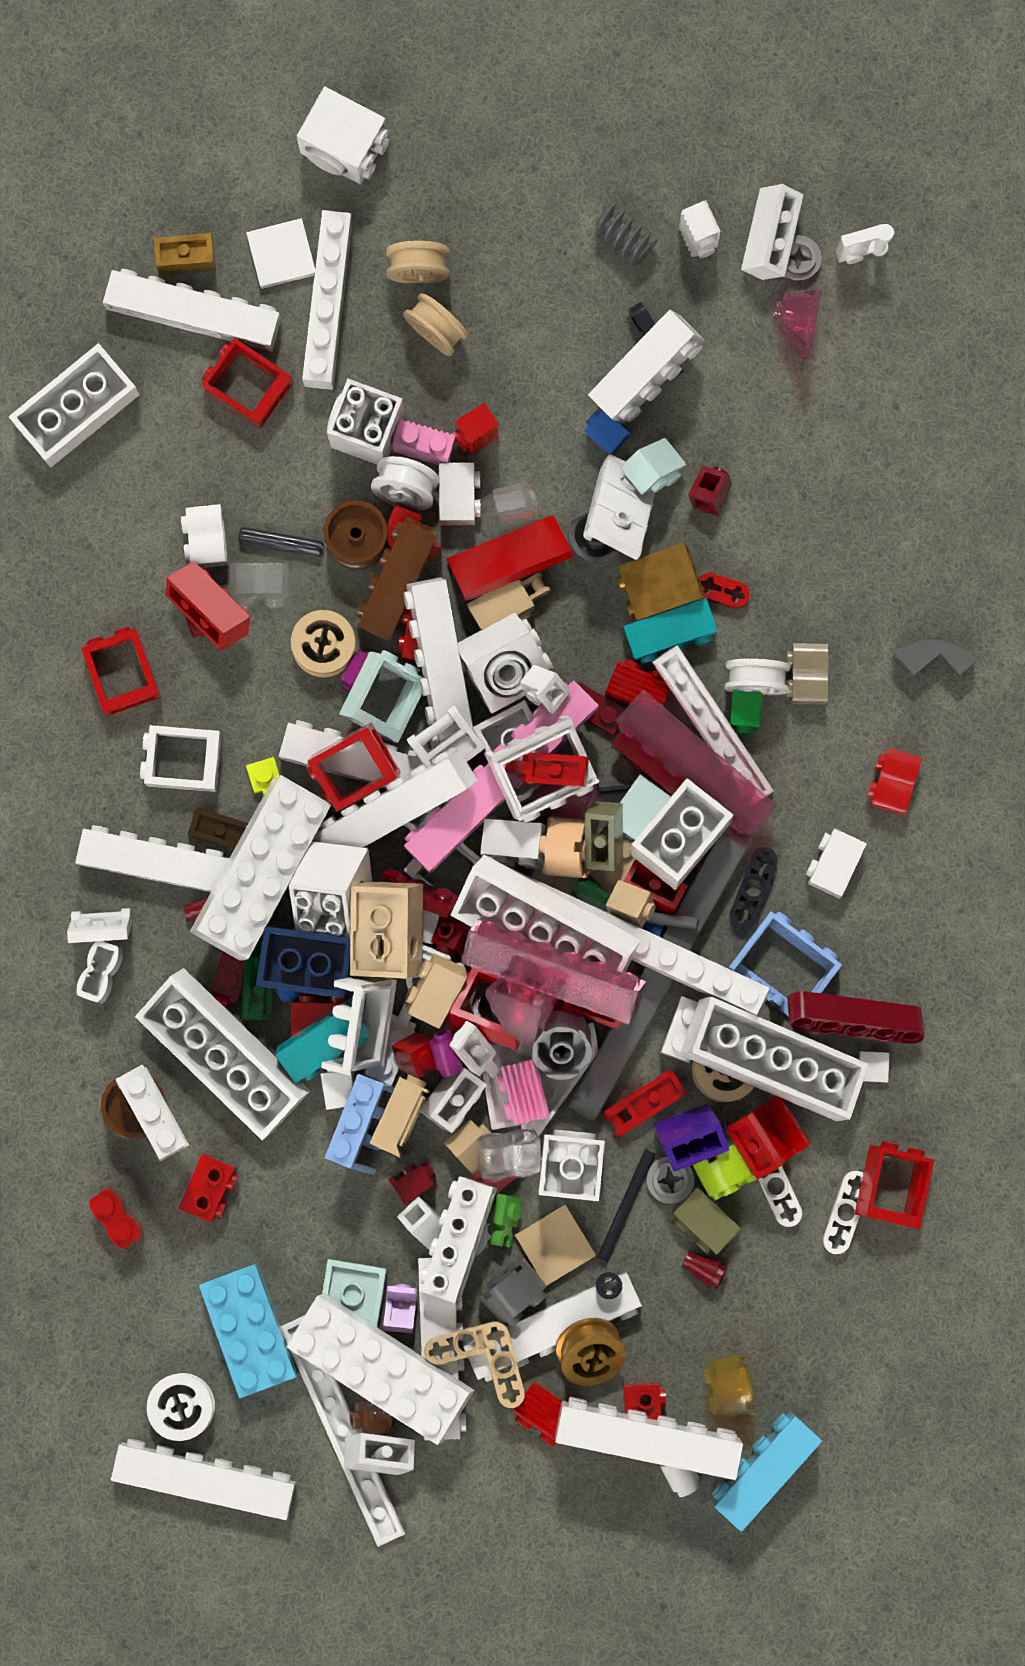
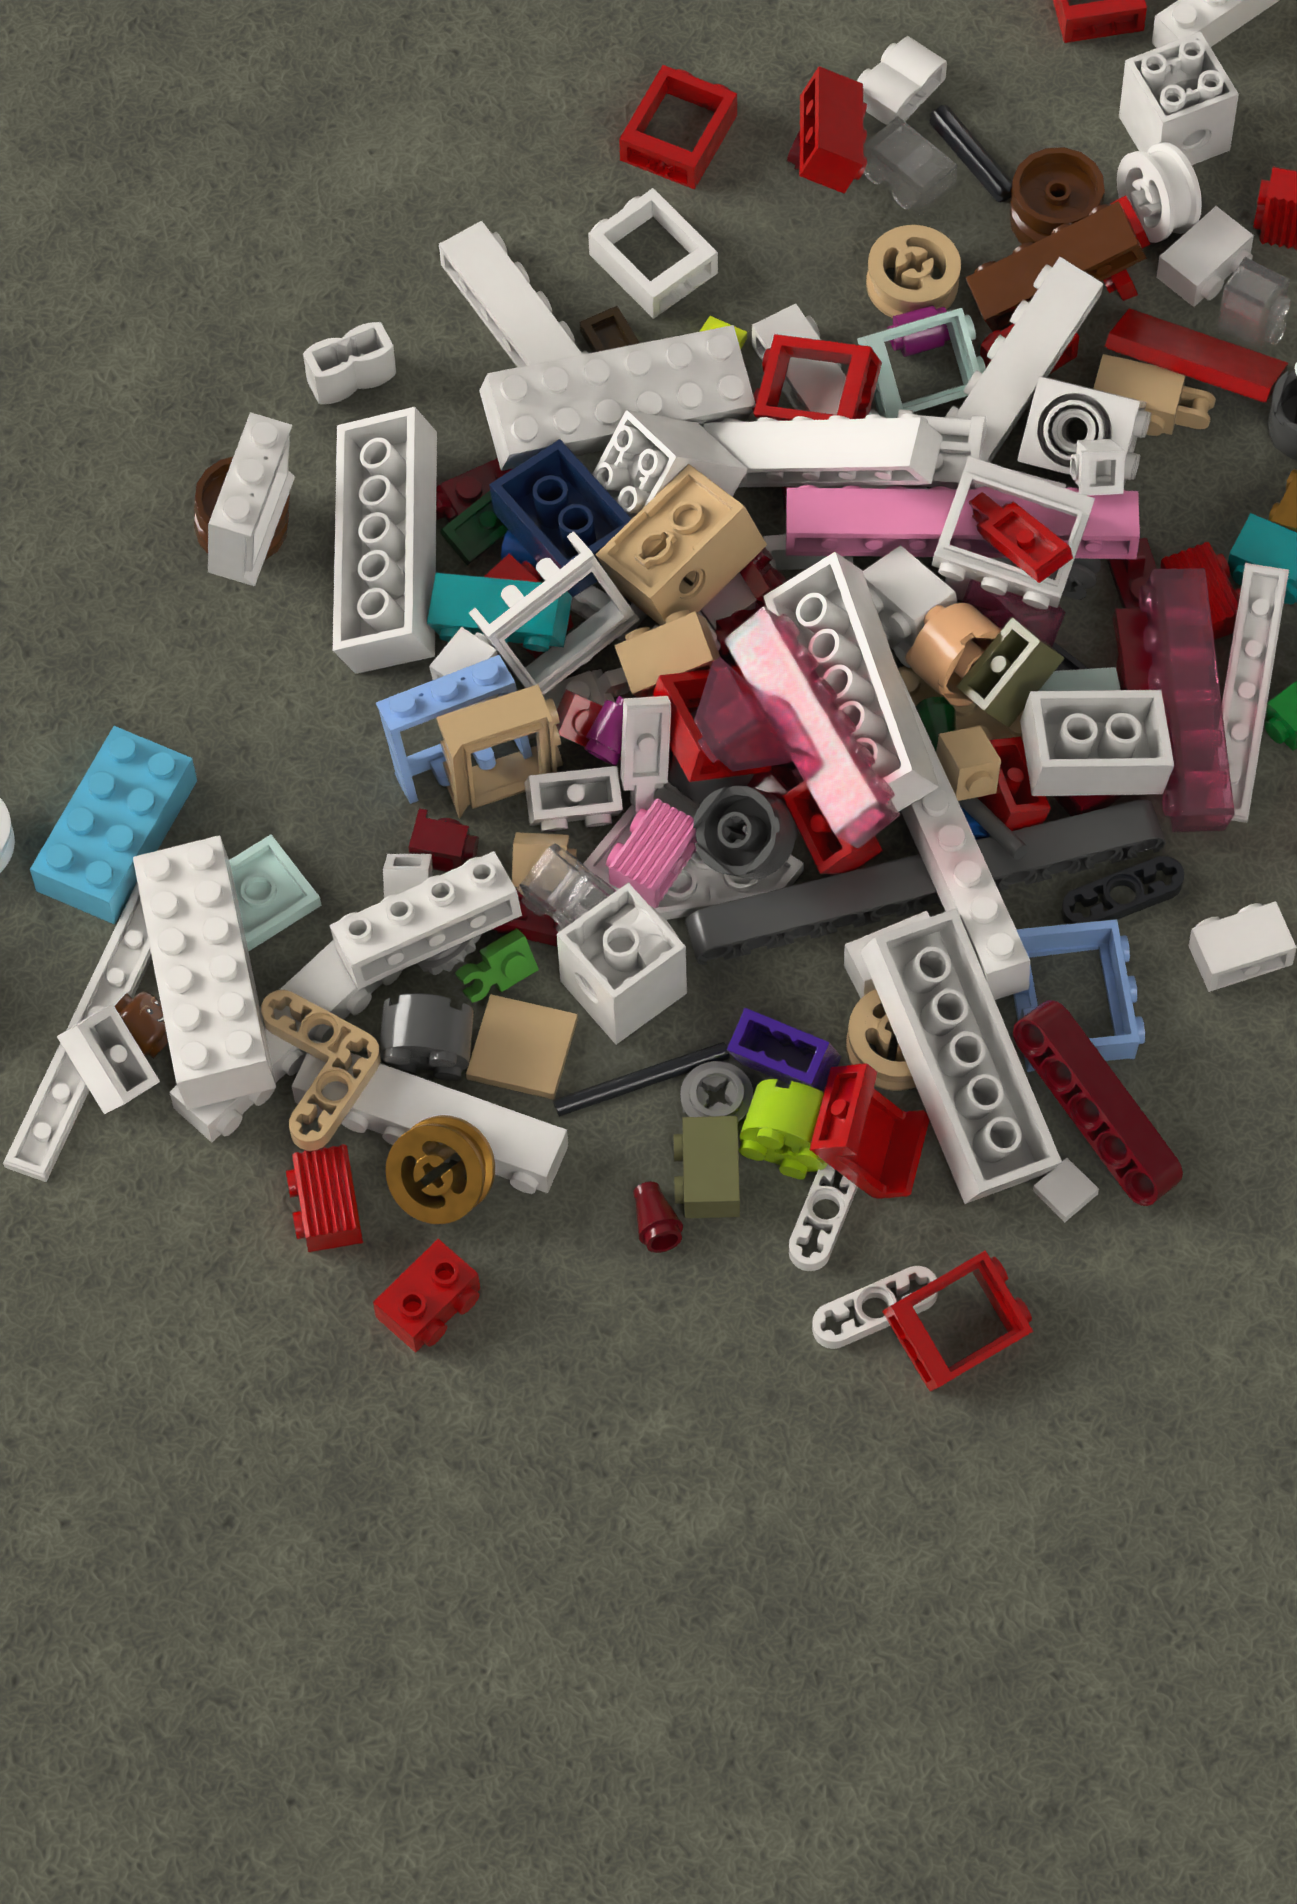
camera: 45 degrees right, 20 degrees down
(99, 926) = (404, 325): white plate -> none
(112, 1211) = (105, 600): red brick -> none
(208, 1187) = (228, 658): red brick -> none
(400, 1308) = (289, 951): lavender bracket -> none
(423, 443) = (1222, 178): bright pink brick -> none
(600, 1281) = (537, 1131): black bush -> none
(645, 1102) = (773, 993): red plate -> none
(649, 1439) = (404, 1292): white brick -> none
(681, 1480) = (401, 1396): white brick -> none
(730, 1386) = (552, 1350): clear yellow brick -> none
(765, 1471) = (495, 1470): medium azure brick -> none

